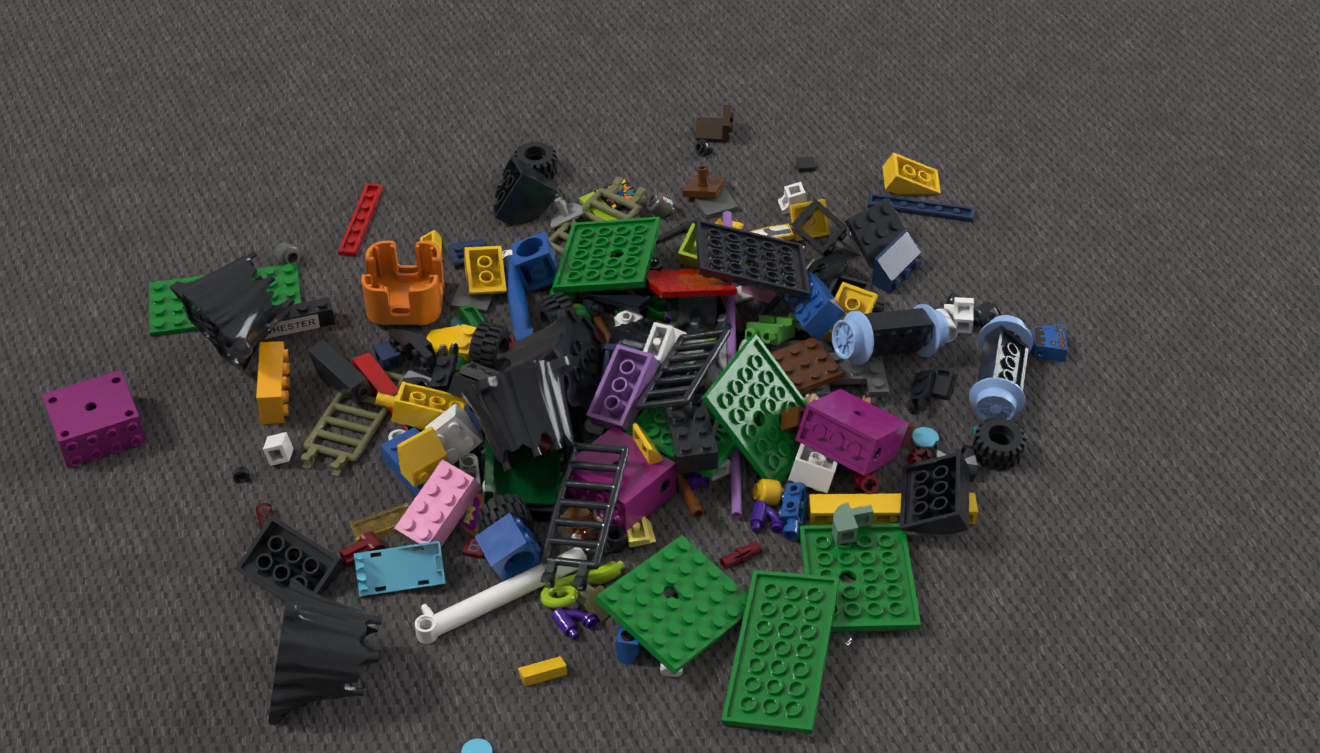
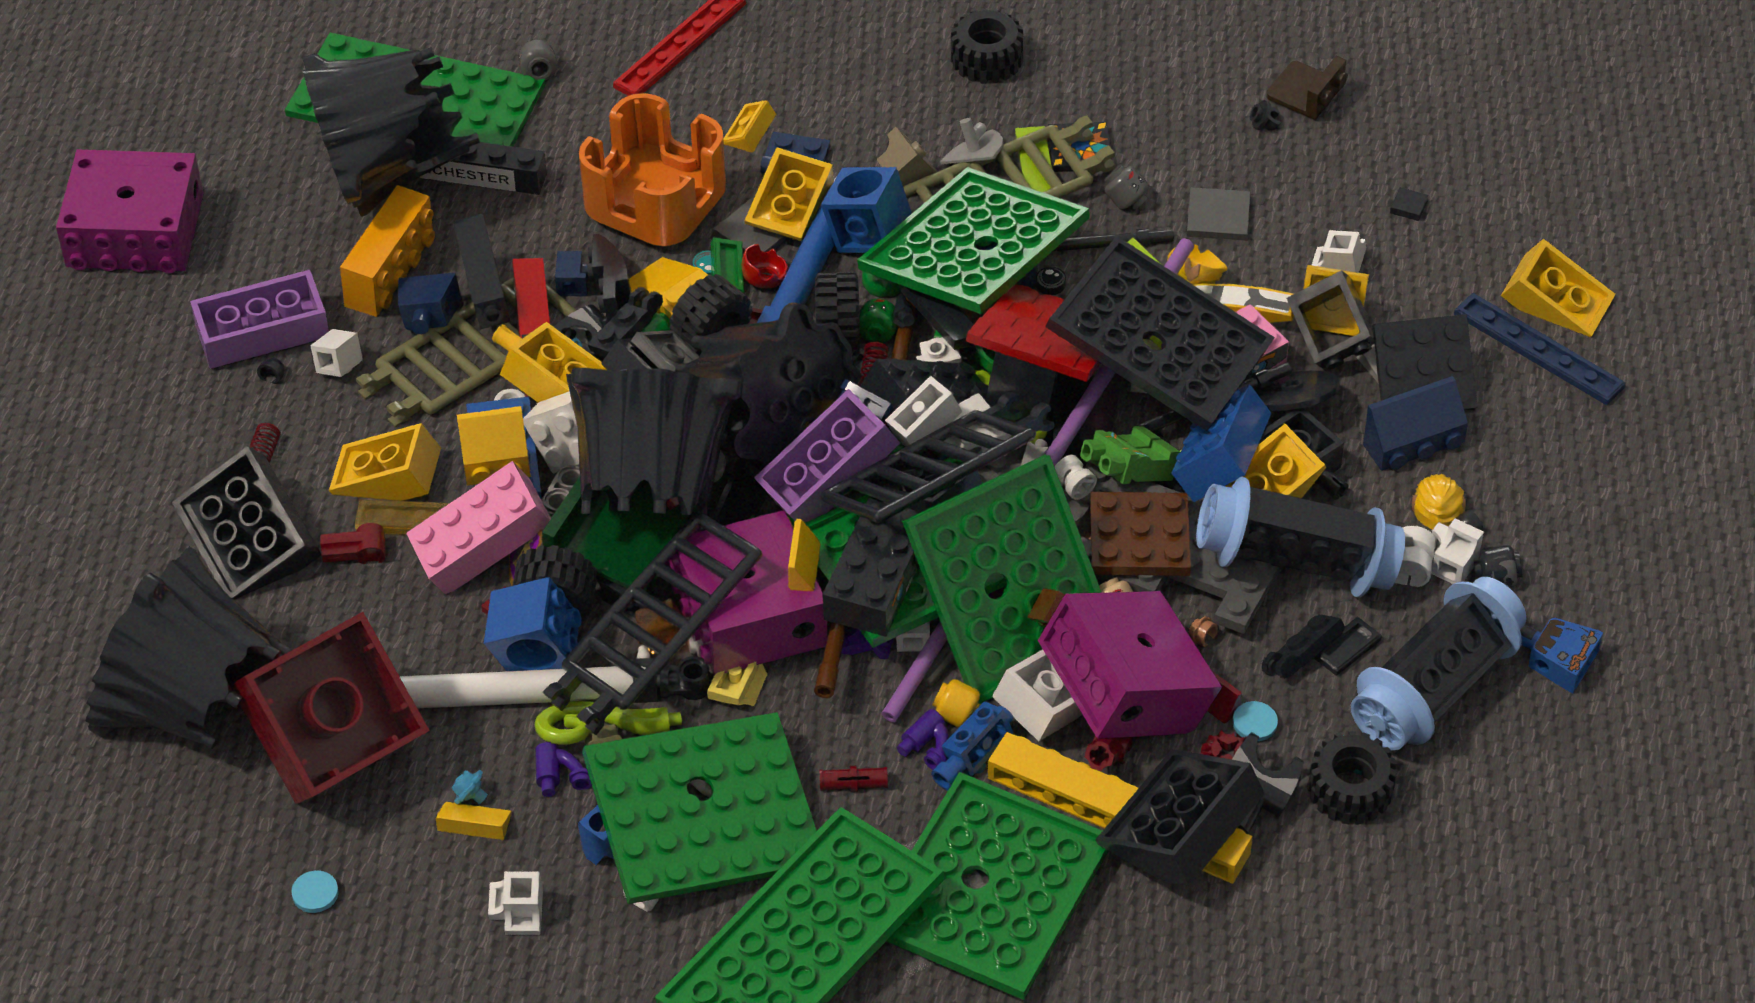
camera: 30 degrees right, 5 degrees up
(217, 448) = (259, 319): none -> medium lavender brick
(313, 401) = (428, 301): none -> dark blue torso
(351, 498) = (387, 465): none -> yellow slope
(399, 568) = (381, 592): medium azure piece -> none
(429, 639) = (329, 708): none -> dark red brick
(492, 313) = (758, 262): none -> red hair
(523, 193) = (931, 91): black brick -> none
(528, 653) = (468, 787): none -> dark azure plant
(532, 227) = (907, 157): none -> dark tan brick
(605, 703) = (517, 902): none -> white brick
(704, 185) = (1216, 180): reddish brown tile -> none
(848, 520) = (1023, 791): sand green brick -> none
(932, 295) = (1438, 501): none -> yellow hair

